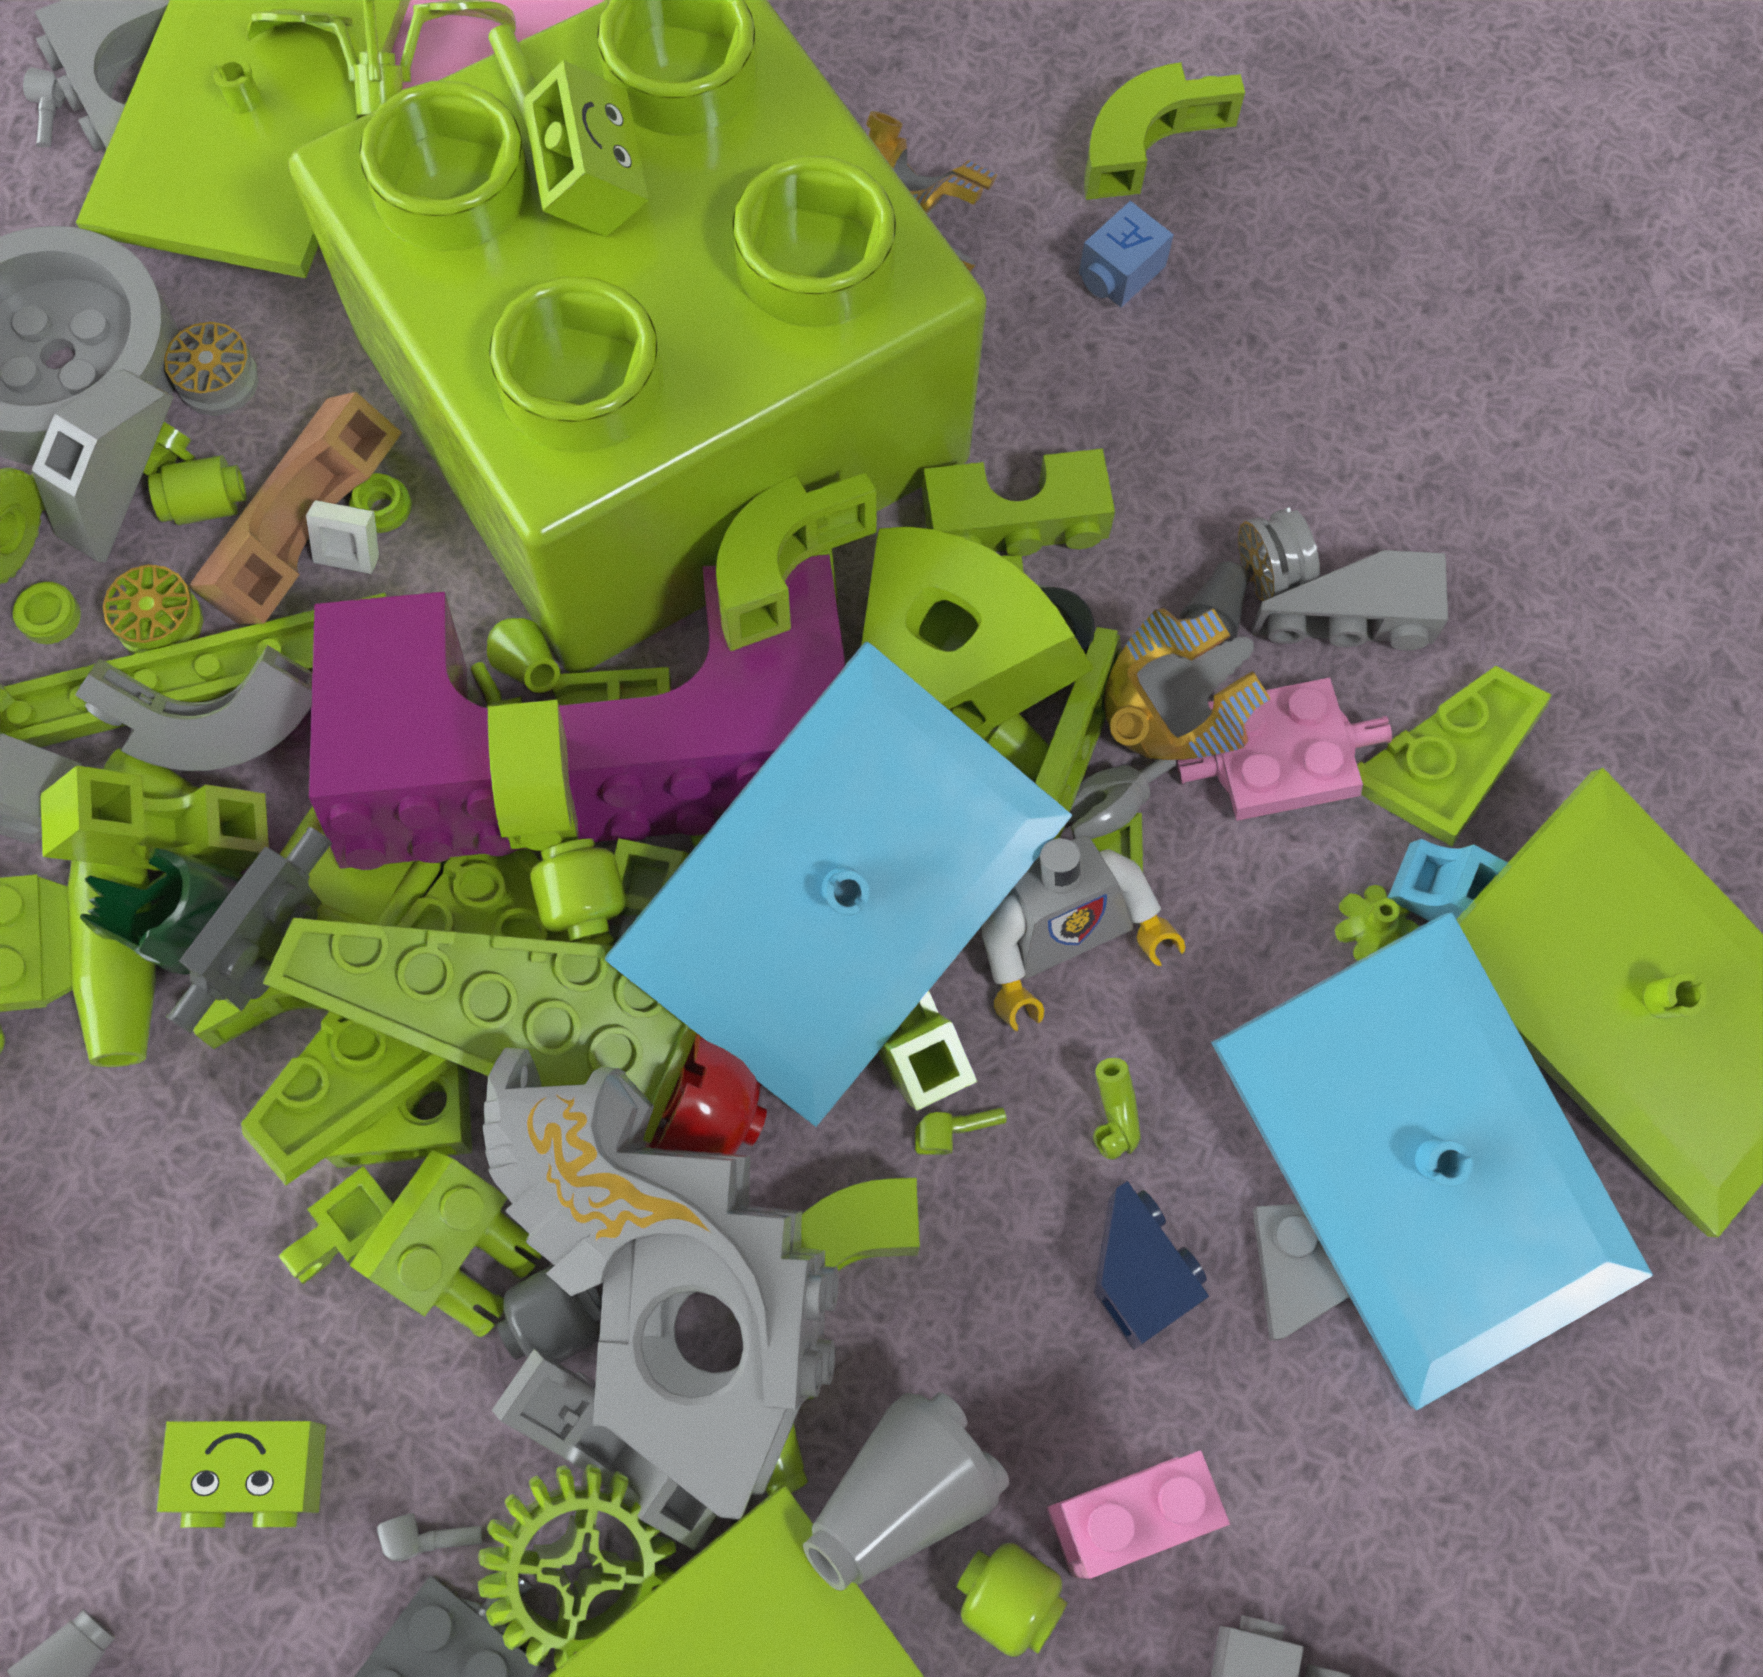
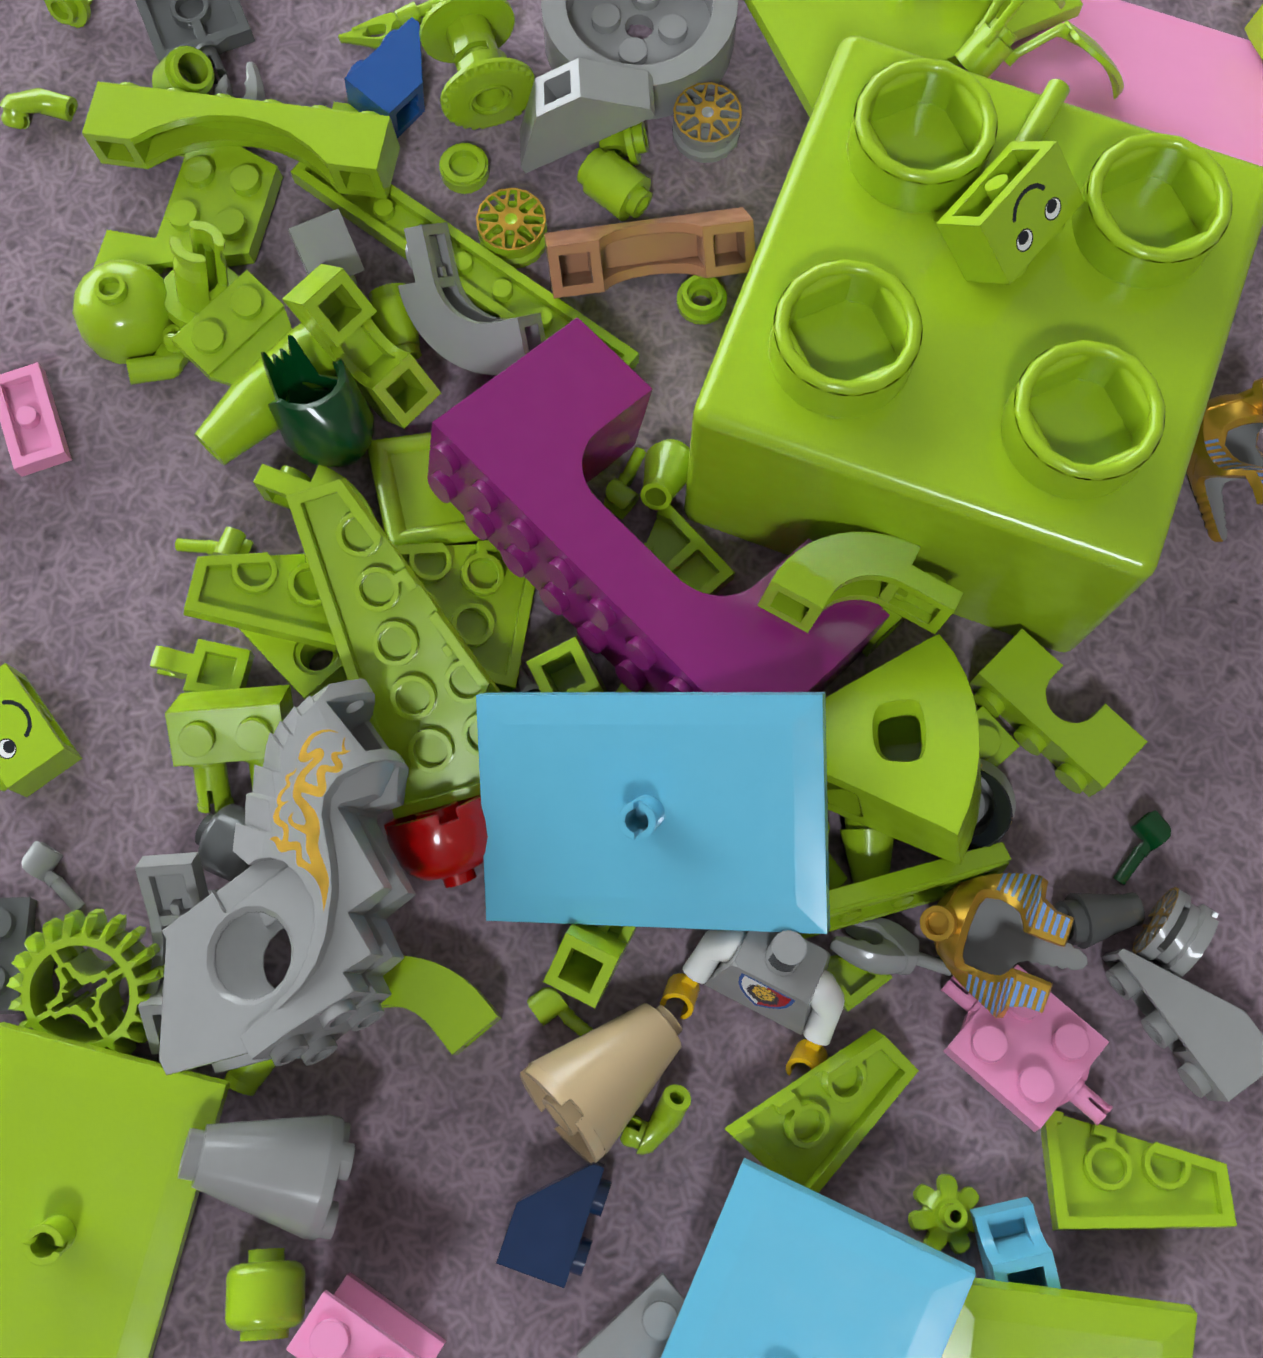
camera: 55 degrees right, 5 degrees up
(231, 1110) = (231, 542): none -> lime hand
(247, 929) = (332, 453): dark grey plate -> none
(343, 536) = (656, 296): white plate -> none
(531, 775) = (553, 546): lime brick -> none
(577, 889) = (515, 639): lime head -> none
(1044, 1129) = (603, 1077): none -> tan cone
(1179, 510) = (1152, 832): none -> dark green hand
(1216, 950) = (826, 1112): none -> lime wing

